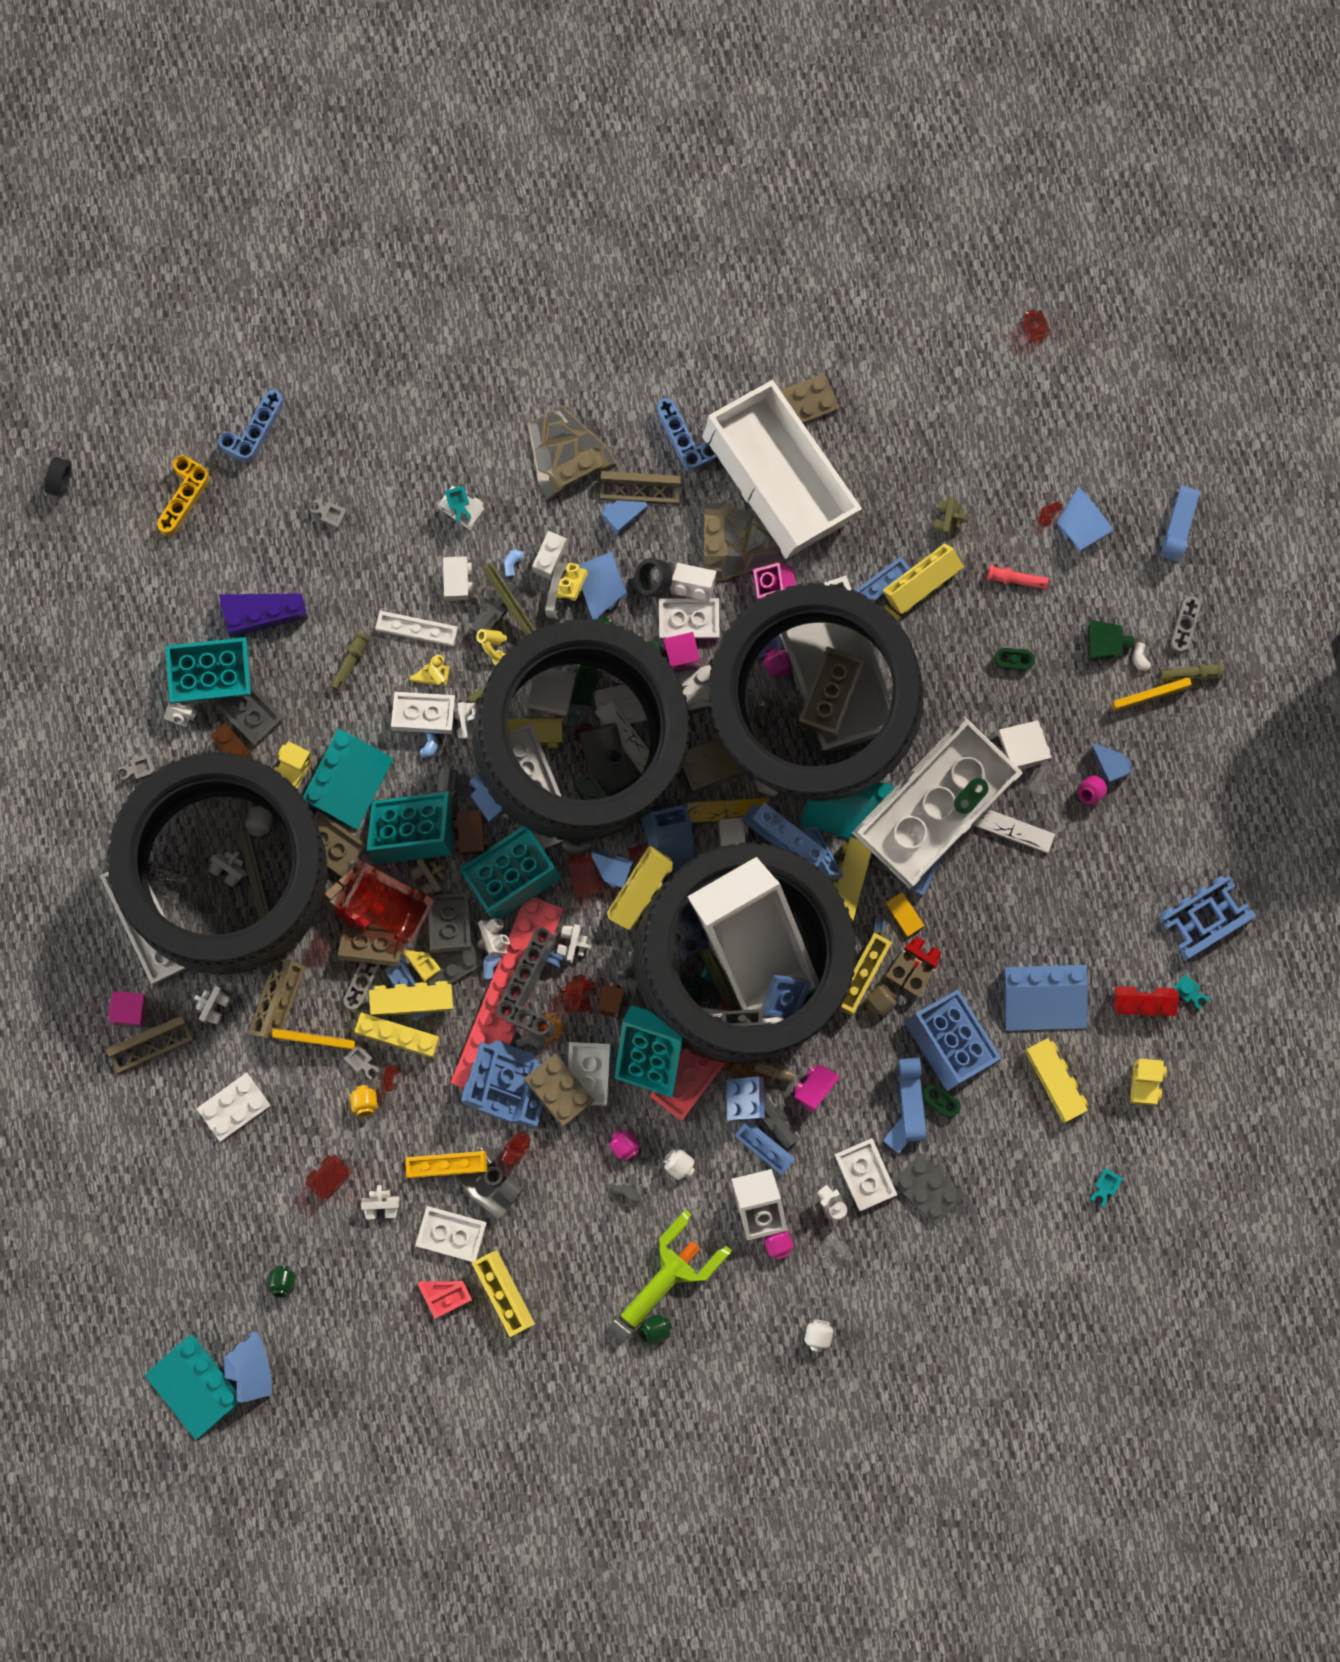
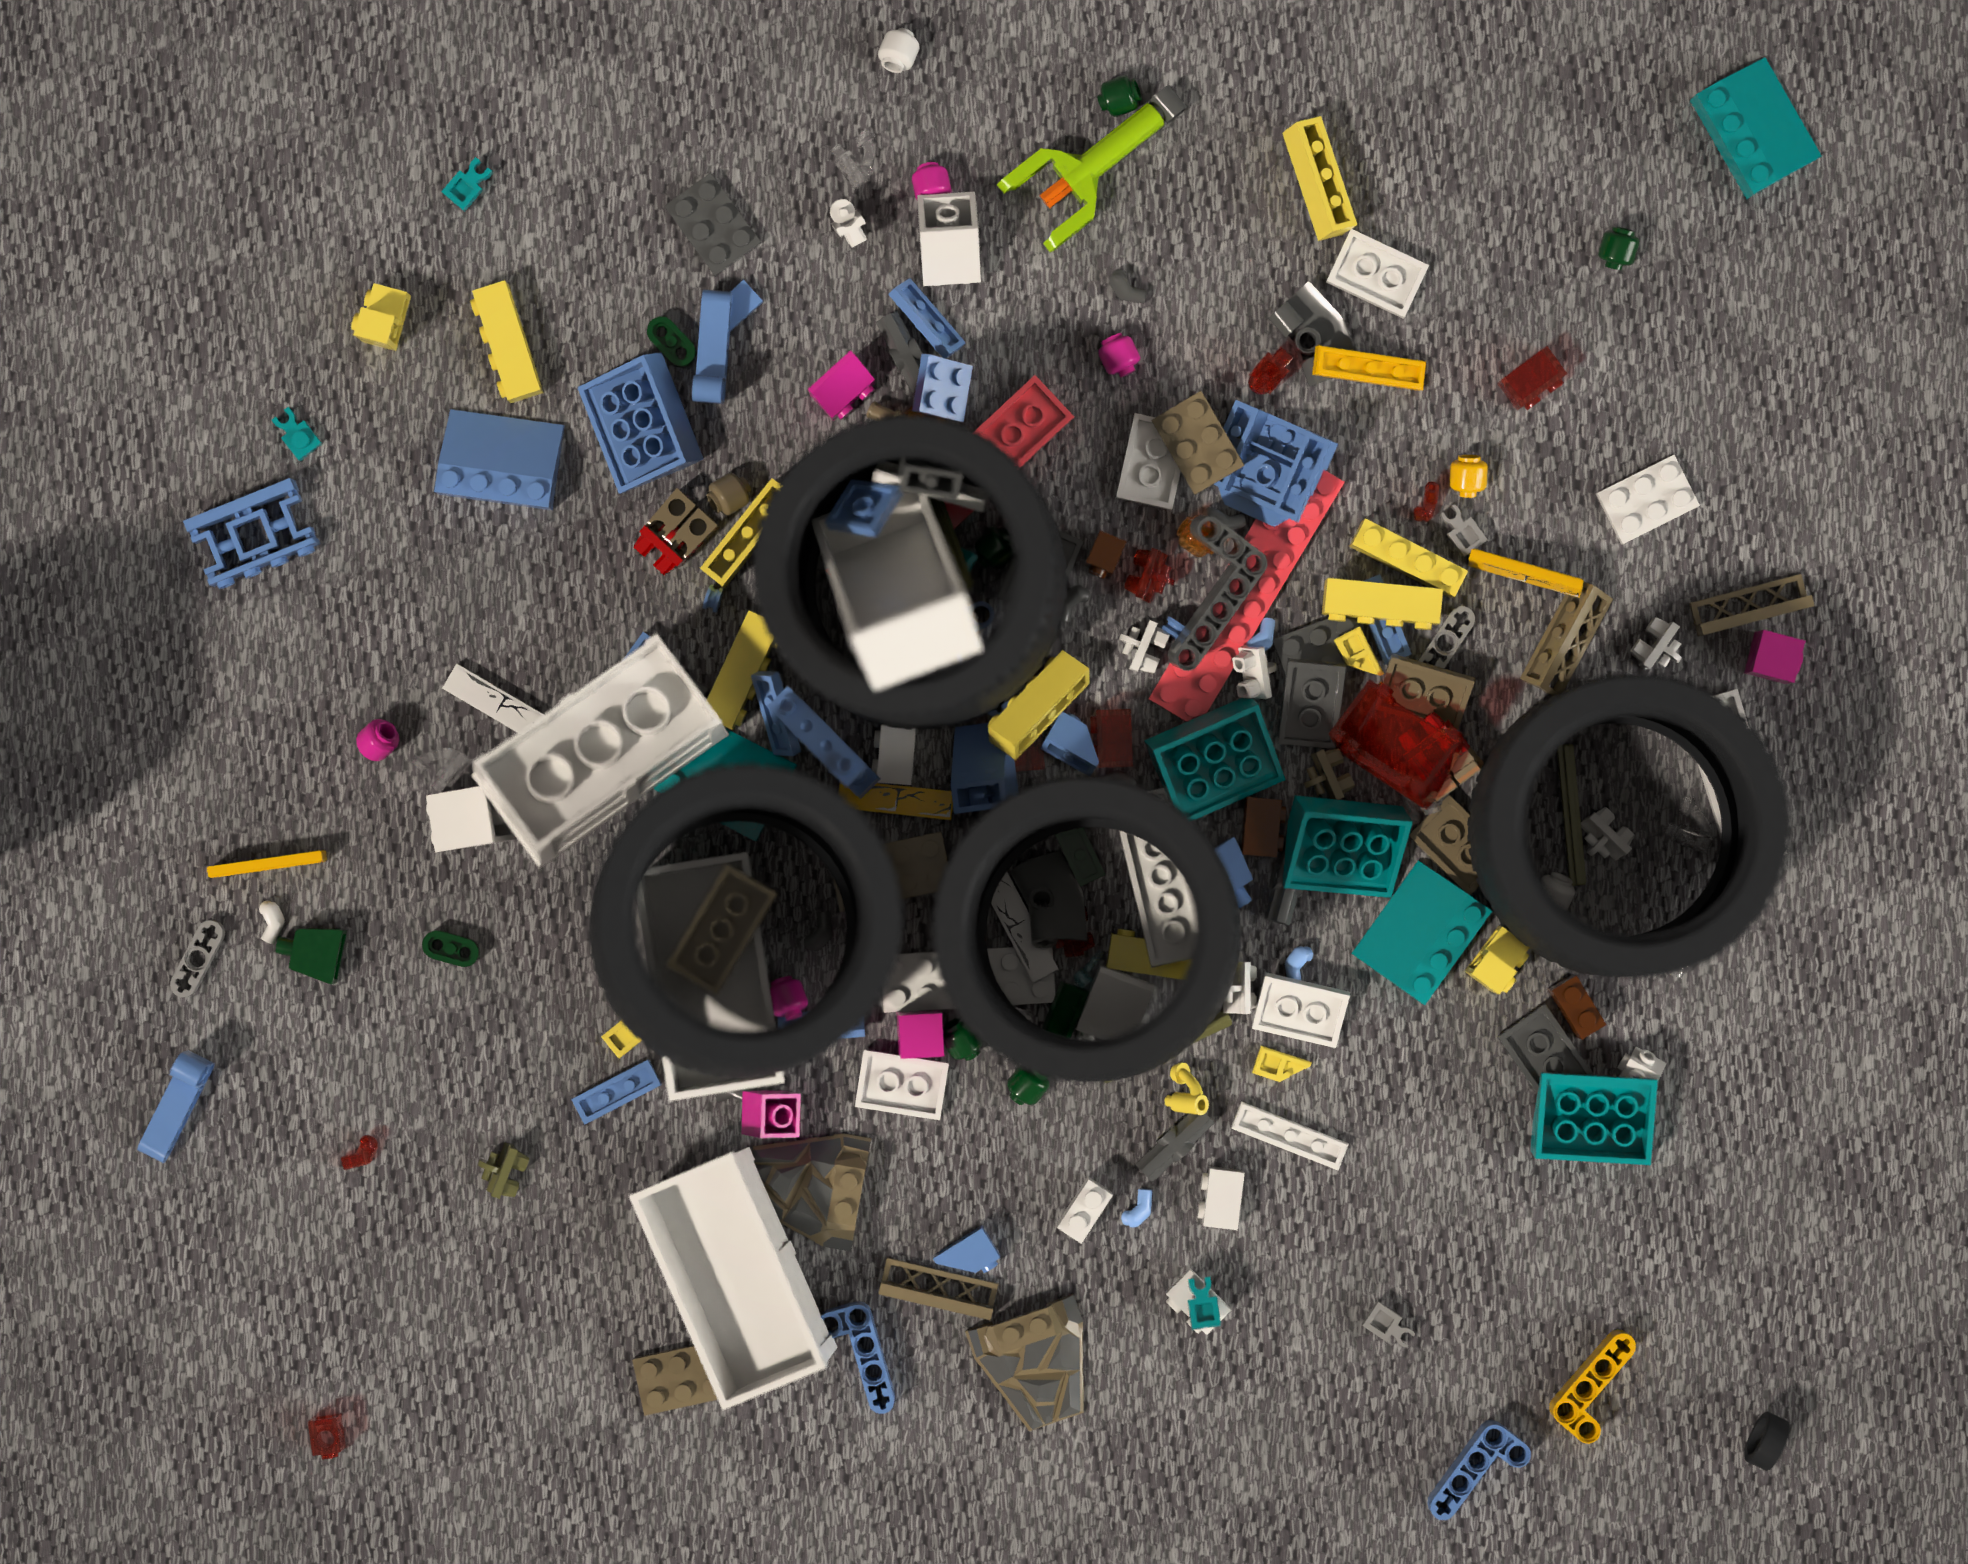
camera: 170 degrees left, 10 degrees up
(141, 768) = (1708, 999): light grey plate -> none
(250, 1369) = (1680, 134): medium blue slope -> none
(260, 611) = (1514, 1195): dark purple wedge -> none
(354, 652) = (1383, 1114): olive pin -> none
(380, 1201) = (1467, 334): white hips -> none
(435, 669) = (1273, 1069): light yellow arm -> none
(444, 1295) = (1399, 191): coral wing -> none
(508, 598) = (1149, 1142): olive axle -> none
(555, 605) = (1080, 1155): light grey beam -> none
(572, 582) = (1059, 1162): light yellow hips -> none
(602, 585) = (1018, 1155): medium blue slope -> none
(642, 574) = (958, 1155): black tyre -> none
(648, 1052) = (1068, 467): teal slope -> none
(679, 1164) = (1049, 315): white head -> none
(693, 582) = (887, 1135): white brick -> none
(865, 1174) = (794, 257): white plate -> none
(904, 914) = (674, 610): yellow tile -> none
(923, 578) = (558, 1085): light yellow brick -> none
(971, 796) = (552, 741): dark green plate -> none
(1008, 576) = (437, 1070): coral pin -> none
(1083, 521) = (314, 1132): medium blue slope -> none
(1111, 763) = (343, 773): medium blue slope -> none
(1132, 1002) = (382, 430): red arch -> none
(1202, 673) = (189, 884): olive pin -> none

